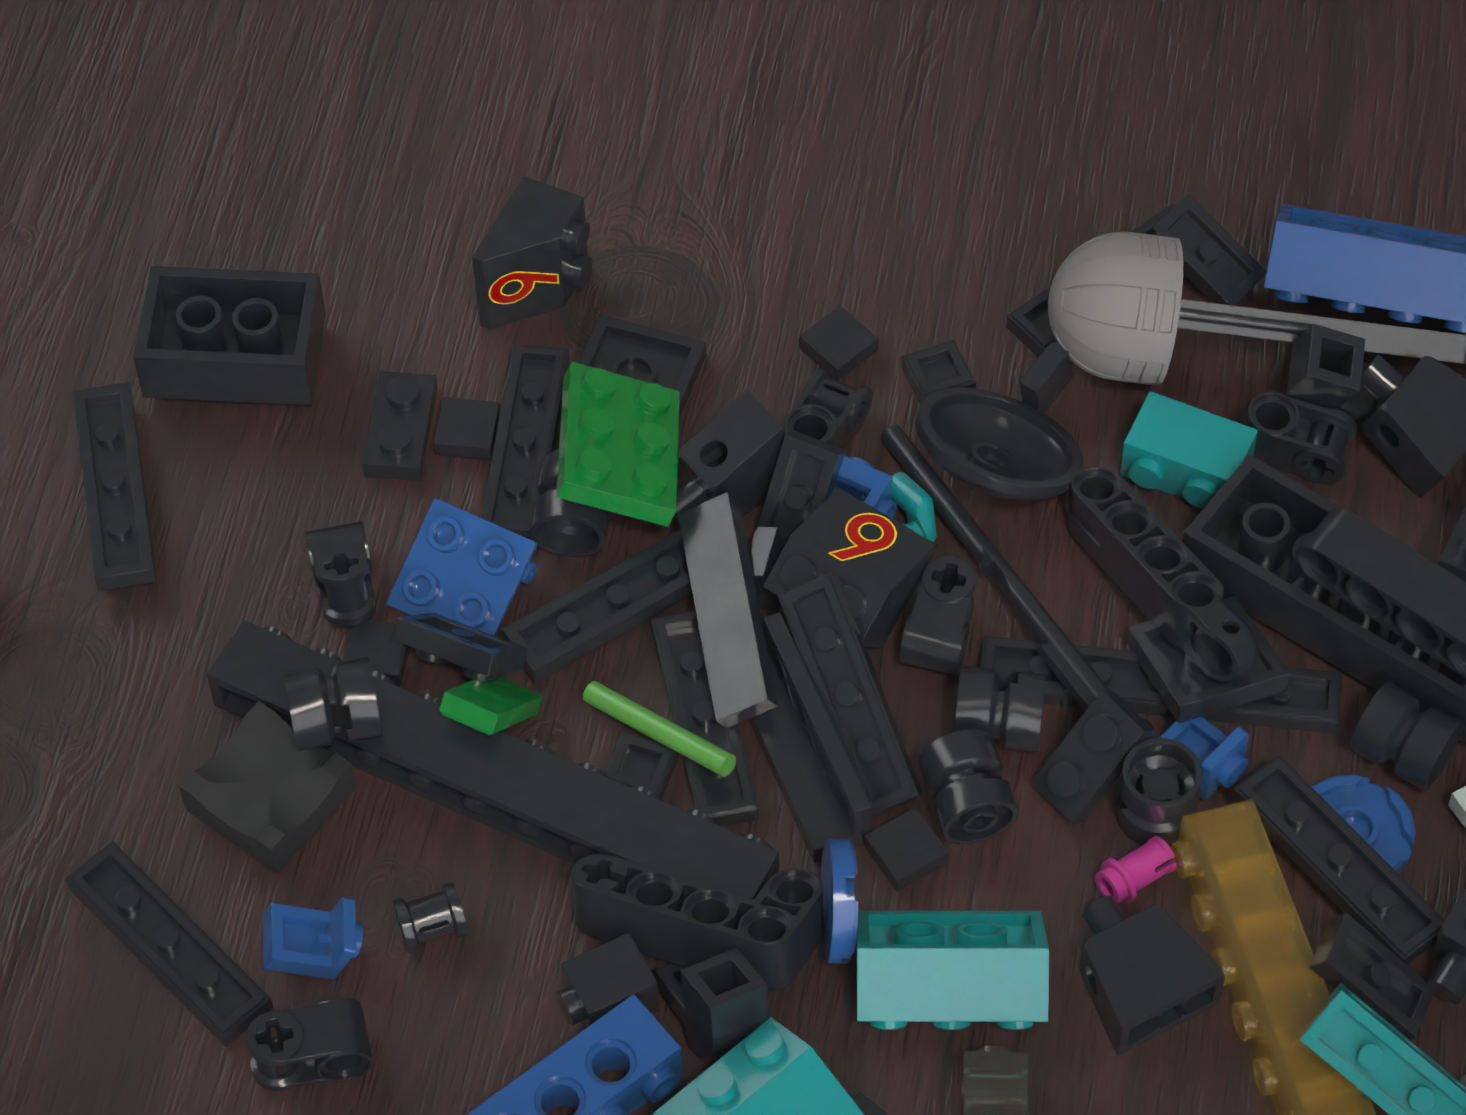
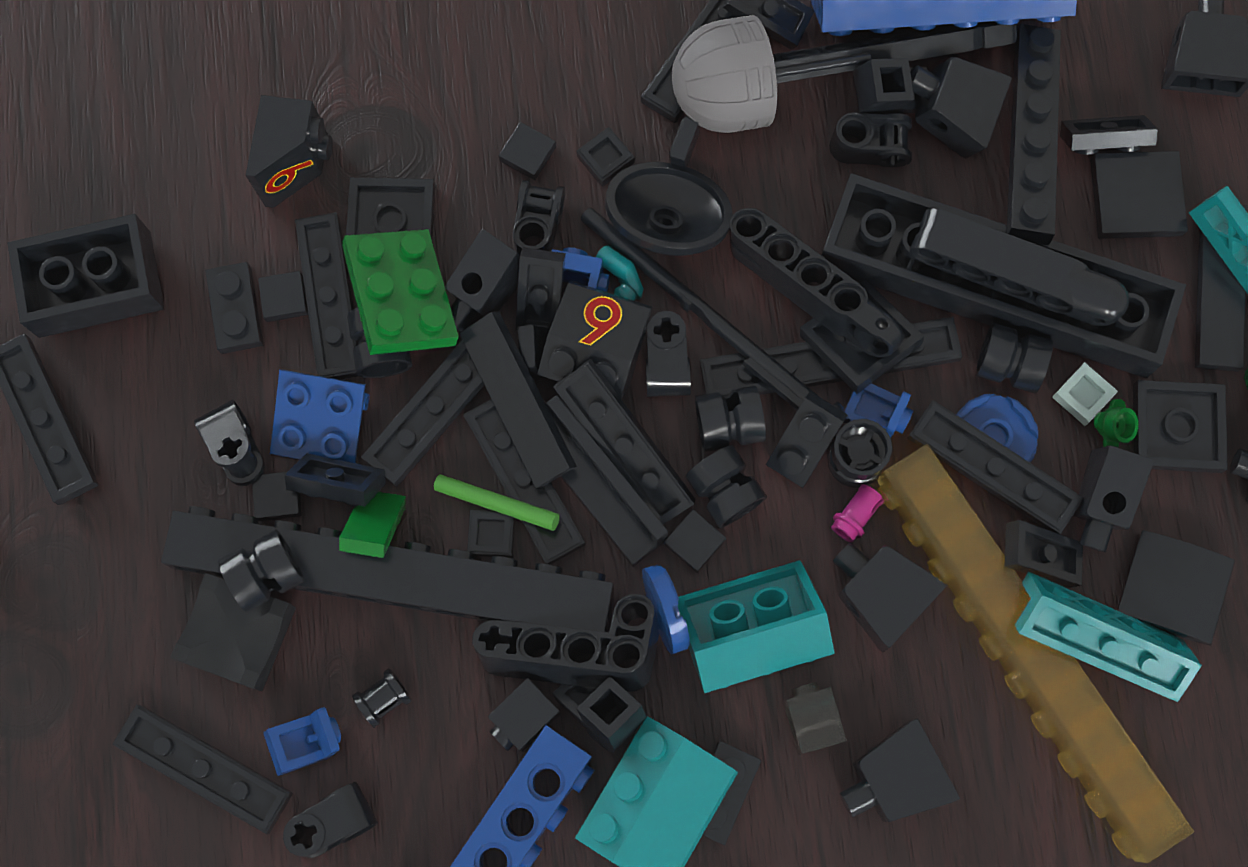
camera: 15 degrees left, 20 degrees up
(1184, 449) = (801, 174): teal brick -> none

